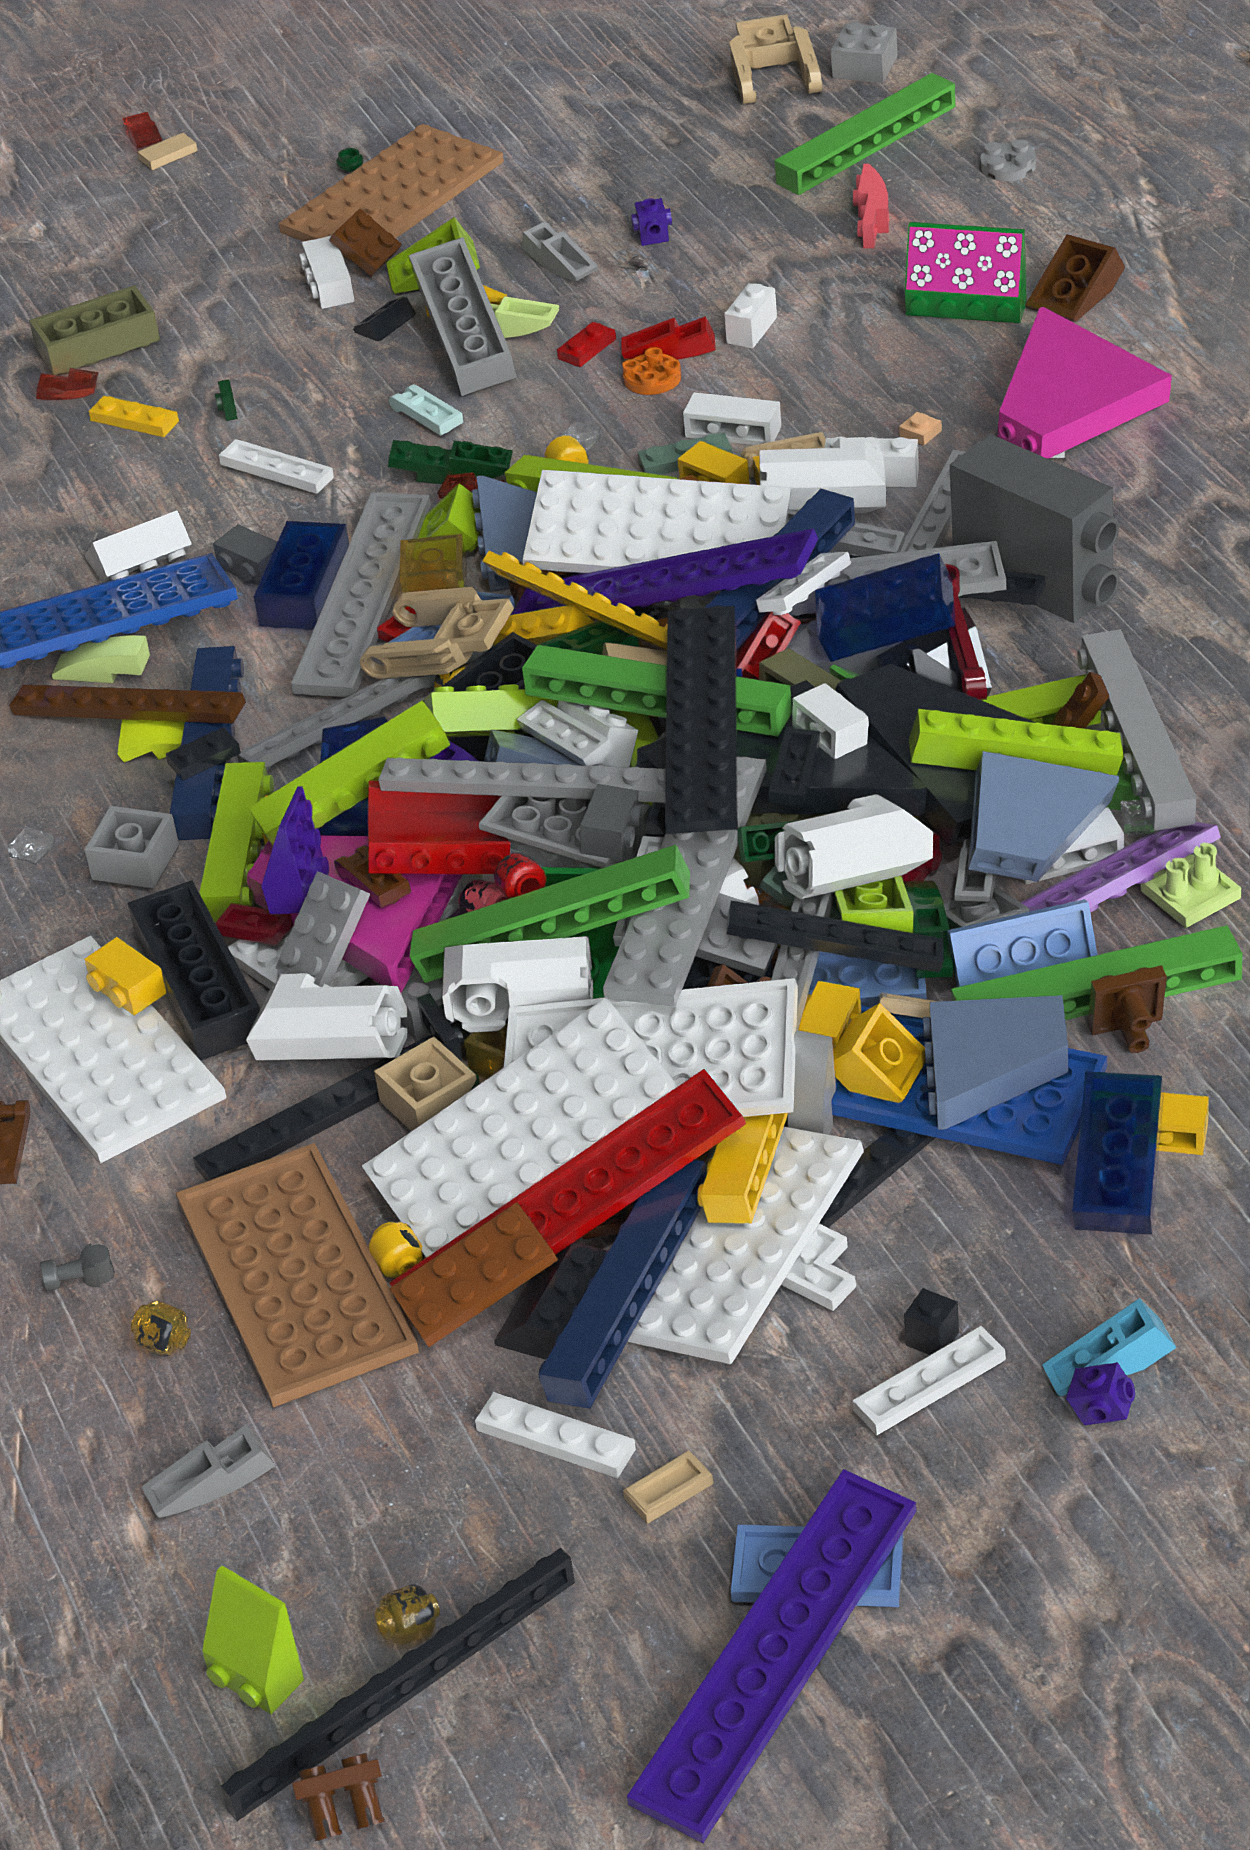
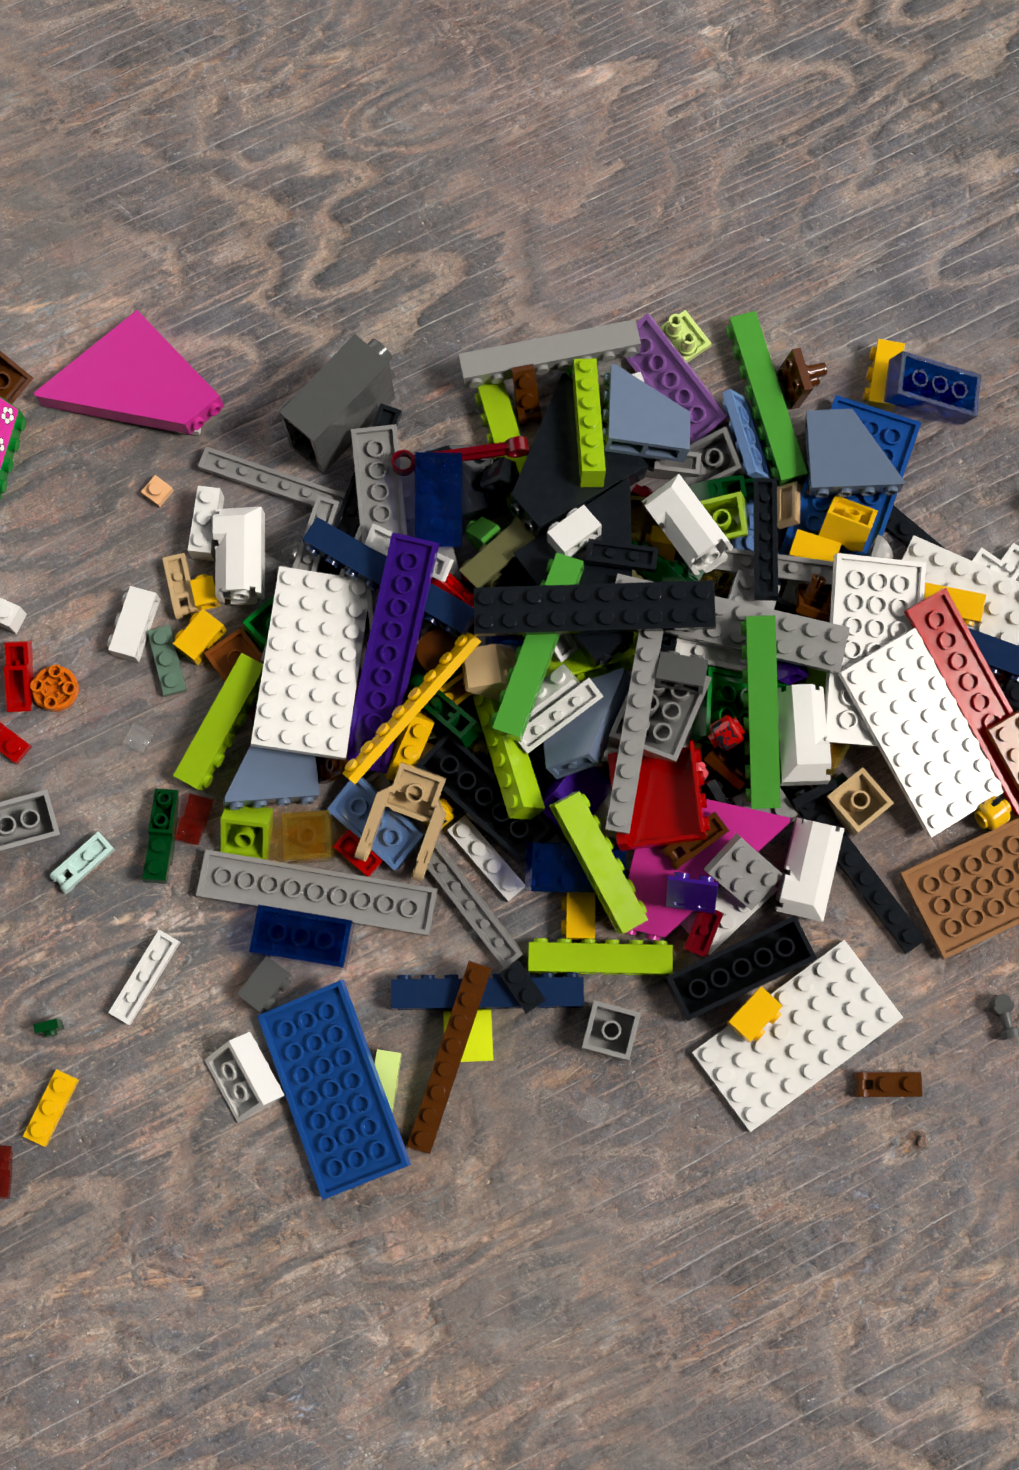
camera: 95 degrees left, 35 degrees up
(566, 449) = (170, 746): yellow head -> none

